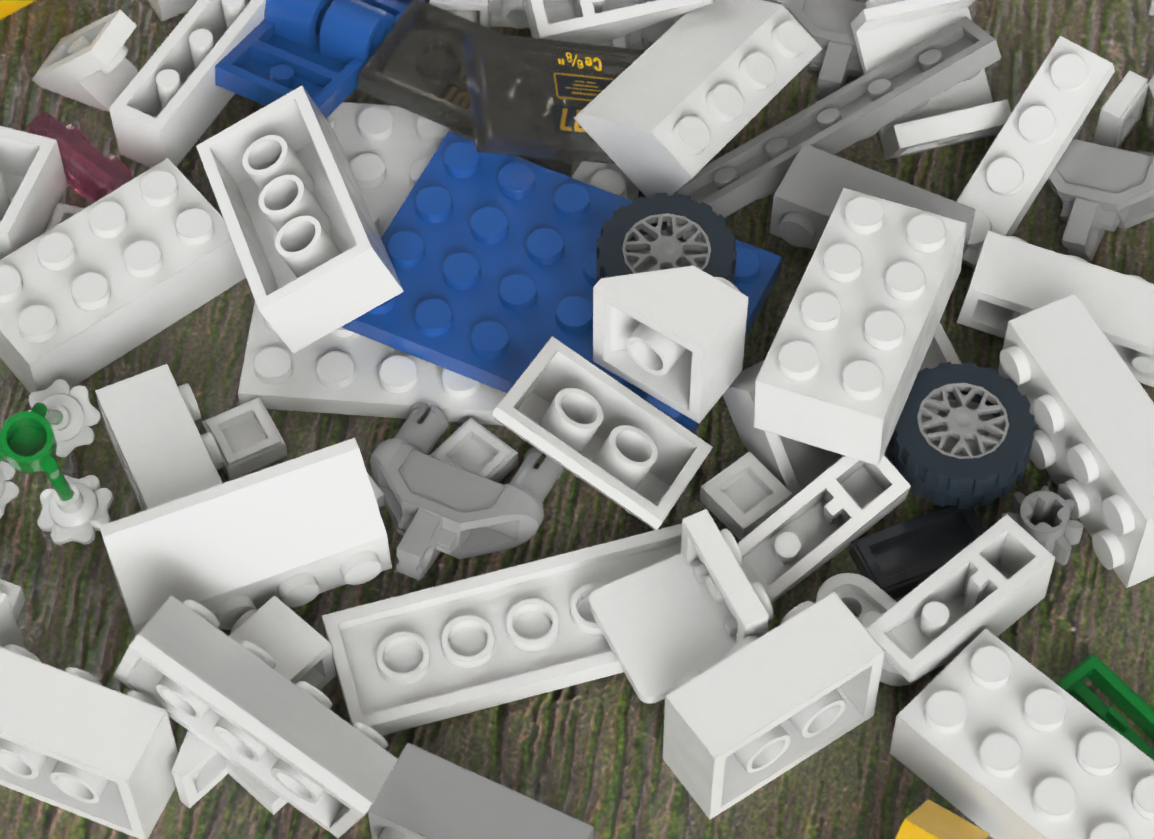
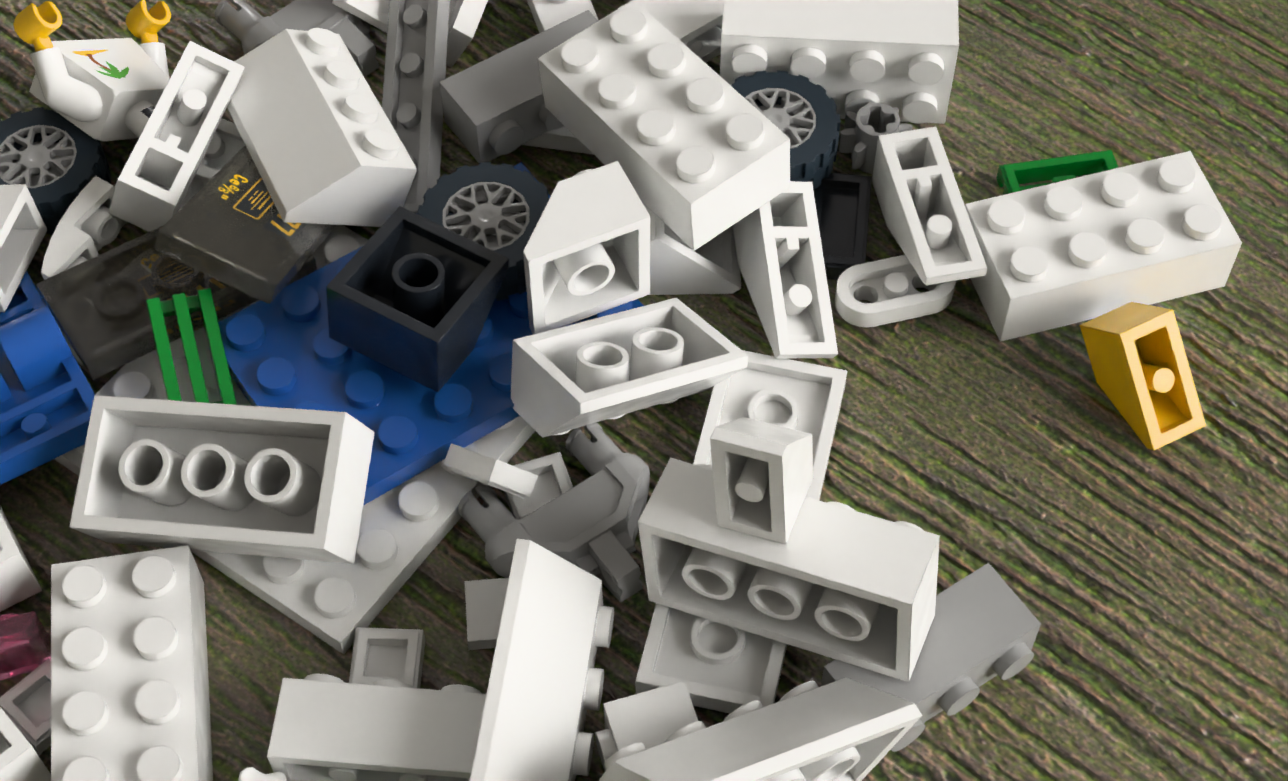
camera: 60 degrees left, 0 degrees up
(395, 124) = (182, 307): none -> green tile
(448, 404) = (490, 471): none -> white tile
(461, 655) = (835, 588): none -> white brick
(476, 551) = (760, 476): none -> white slope
(545, 243) = (415, 298): none -> black slope
(681, 610) = (831, 383): white bracket -> none
(744, 495) = (722, 305): white plate -> none
(771, 703) = (944, 381): white brick -> none

